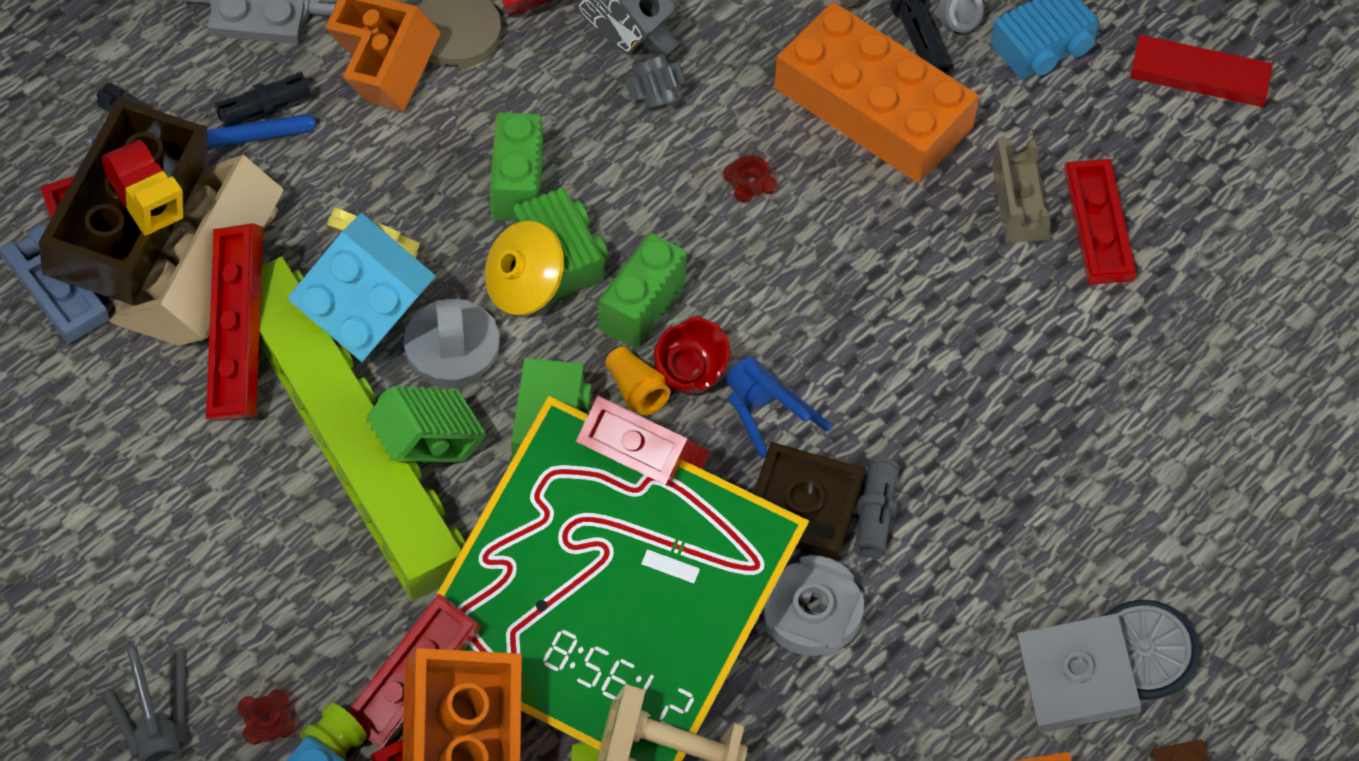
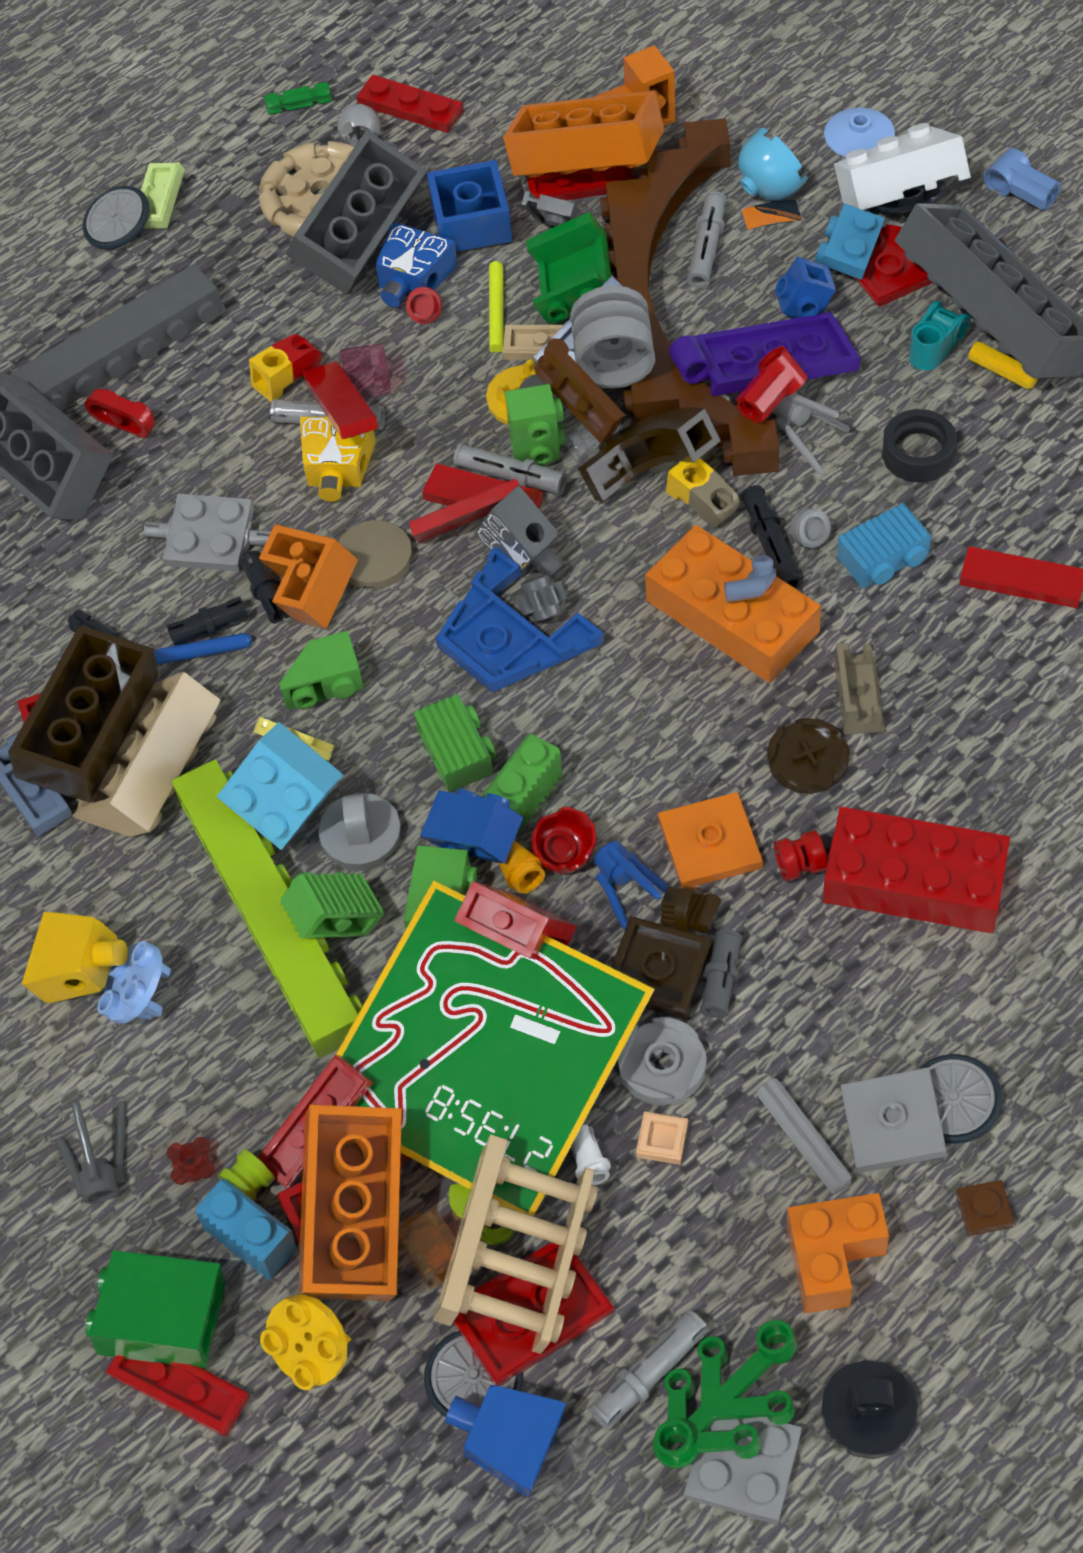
camera: 10 degrees right, 0 degrees up
(118, 481) = (71, 957): none -> yellow torso
(143, 186) = (96, 702): leg -> none
(191, 512) = (133, 985): none -> light blue plate
(234, 322) = (173, 817): red tile -> none
(328, 59) = (263, 585): none -> black pin
(403, 159) = (321, 672): none -> bright green slope
(515, 162) = (418, 672): bright green brick -> none
(524, 268) = (422, 765): yellow dish -> none
(587, 333) = (472, 824): none -> blue brick
(607, 131) = (498, 642): none -> blue wing
(731, 709) = (587, 1154): none -> white pin
(753, 167) = (621, 671): clear red plate -> none
(814, 692) = (662, 1138): none -> light nougat tile
(838, 434) = (689, 909): none -> dark brown piece
(857, 358) = (710, 840): none -> orange plate
(905, 69) = (755, 584): none -> sand blue arm
(963, 376) = (800, 855): none -> red wheel
(966, 265) = (808, 756): none -> dark brown tile
(977, 690) = (804, 1136): none -> light grey axle
(1095, 393) = (916, 869): none -> red brick
(1099, 222) = (927, 715): red tile -> none

